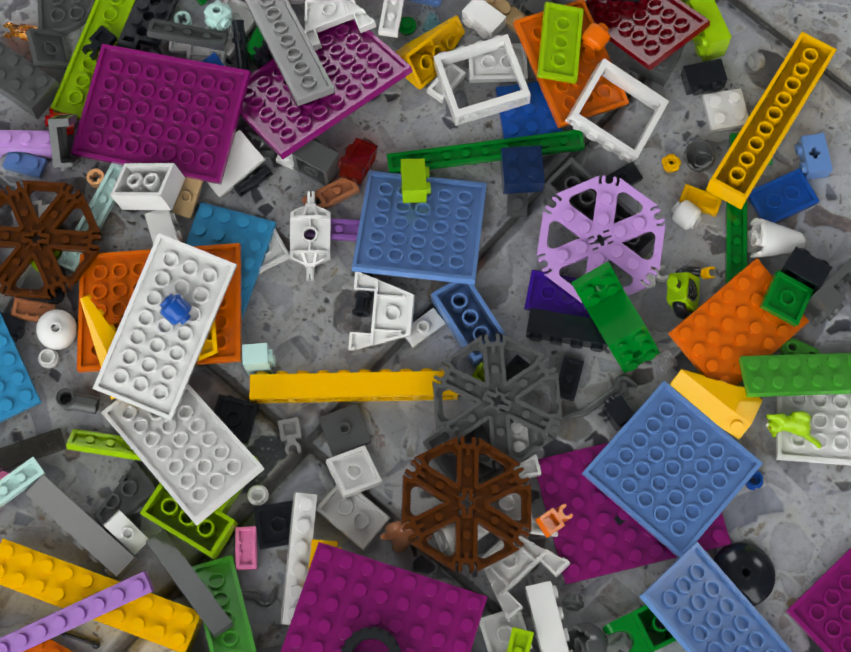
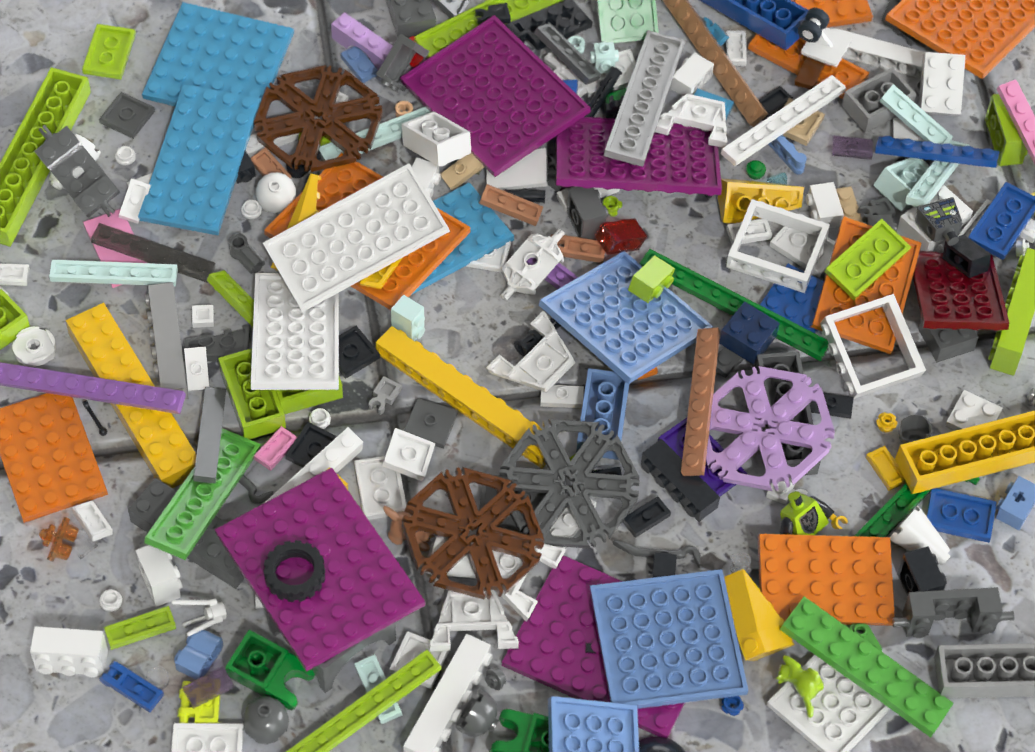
camera: 35 degrees right, 15 degrees down
(90, 481) = (202, 316): none -> white plate
(175, 309) = (373, 226): blue head -> none
(251, 197) = (511, 205): none -> nougat plate
(328, 134) = (614, 202): none -> lime plate
(535, 255) = (700, 402): none -> nougat plate
(553, 520) = (530, 601): orange plate -> none
(595, 37) = (903, 276): orange head -> none
(616, 317) = (721, 487): green bracket -> none
(686, 215) = (861, 467): white head -> none
(704, 77) = (976, 376): black brick -> none
(786, 298) = (885, 583): green plate -> none

